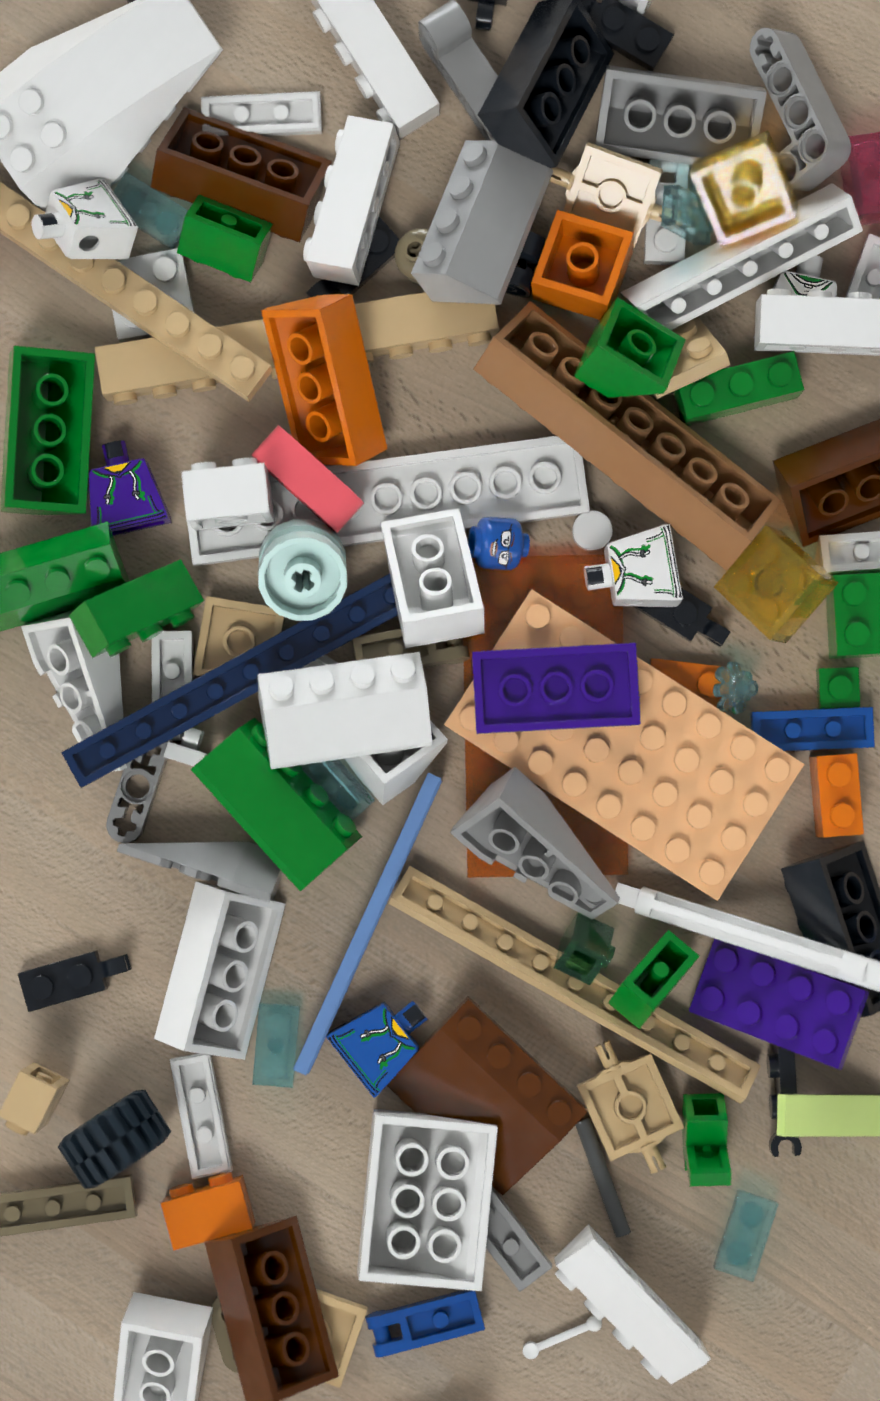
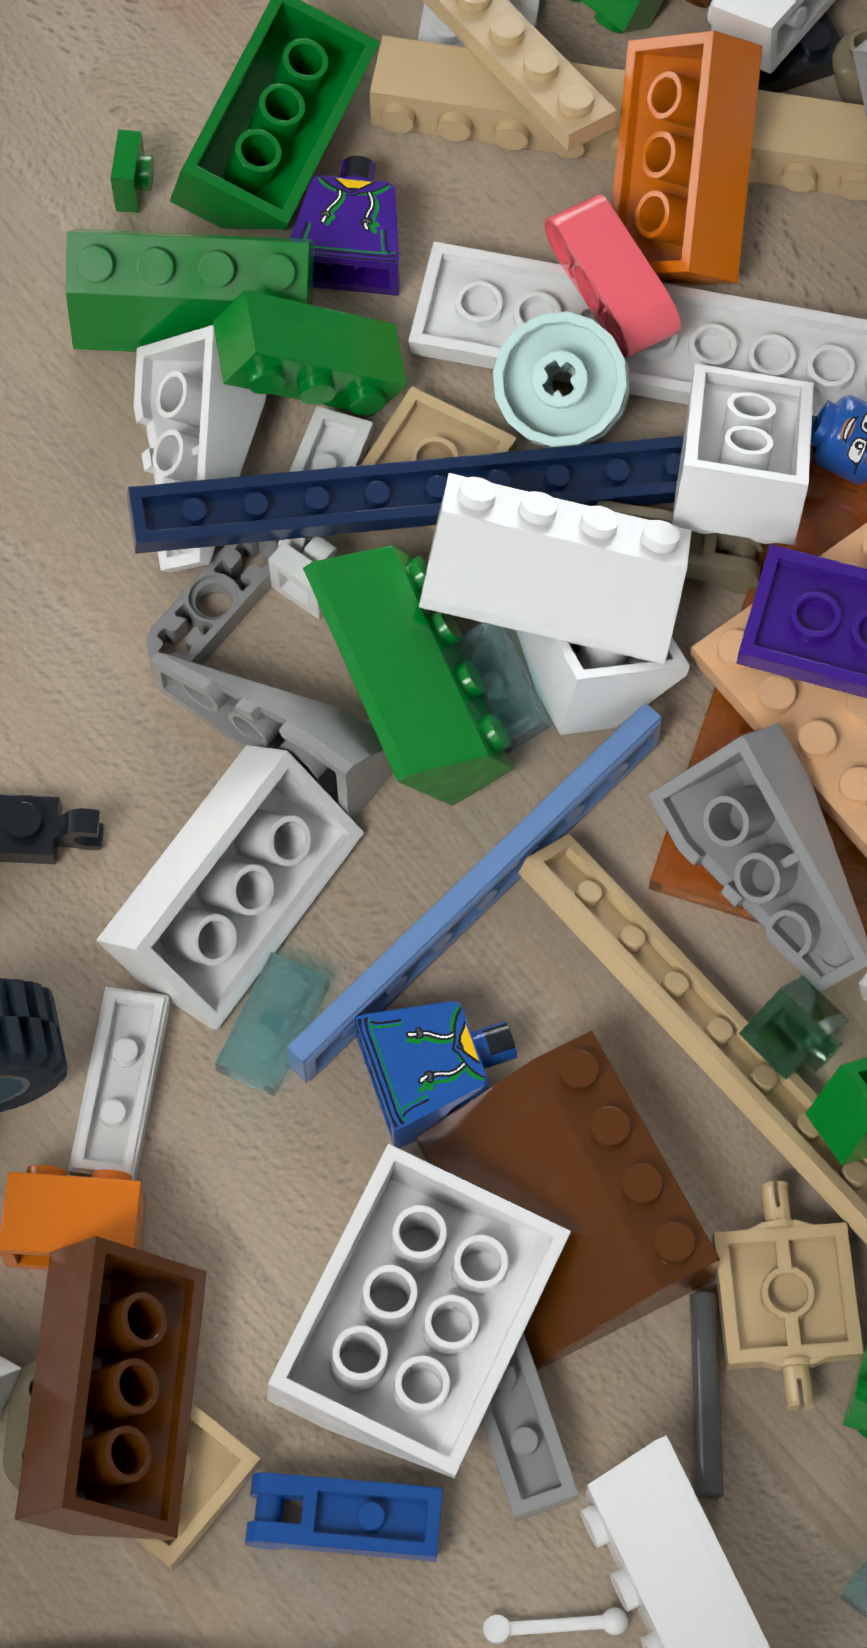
camera: 20 degrees right, 20 degrees down
(228, 494) = (494, 248): white brick -> none

